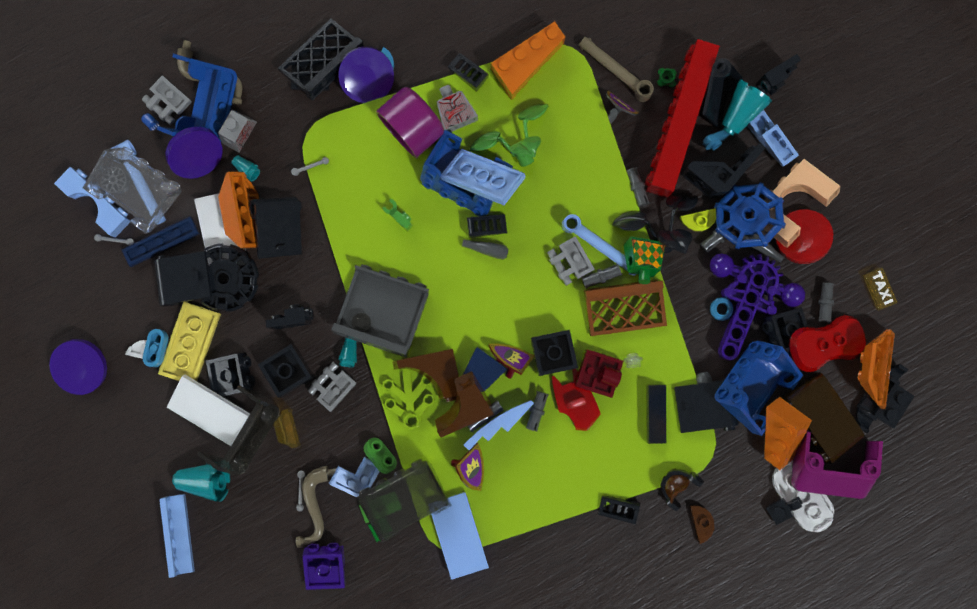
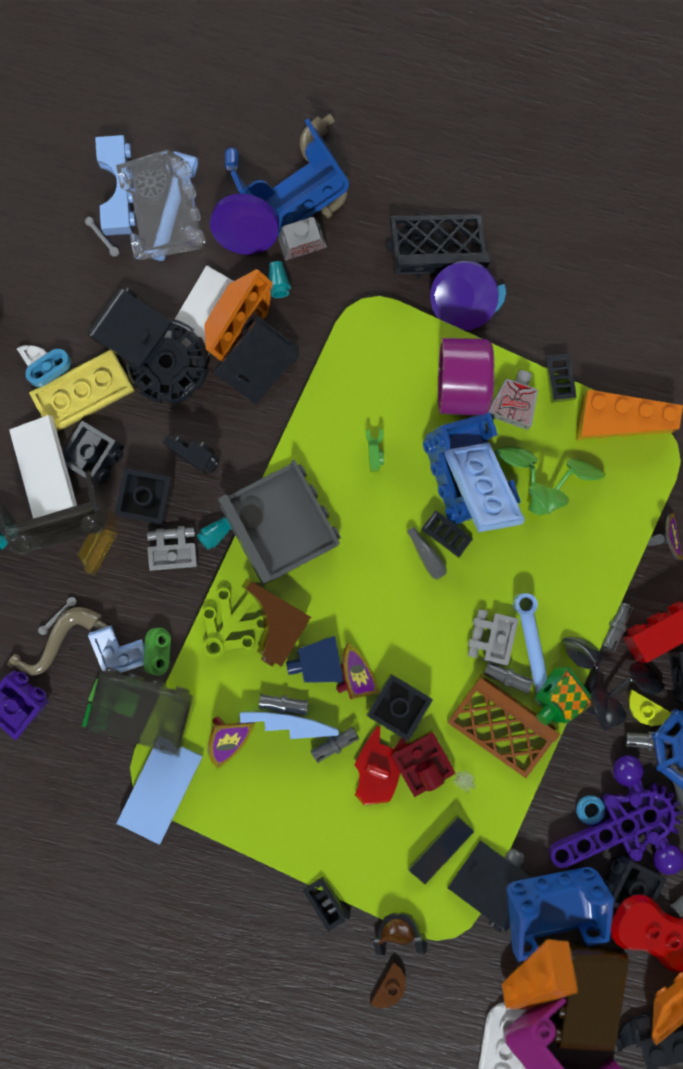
camera: 45 degrees right, 0 degrees up
(160, 241) = (141, 276): dark blue tile -> none
(170, 95) = (271, 153): light grey plate -> none
(295, 171) = (355, 339): light grey hinge -> none
(469, 407) = (276, 684): reddish brown arch -> none
(782, 510) = (473, 1046): black plate -> none

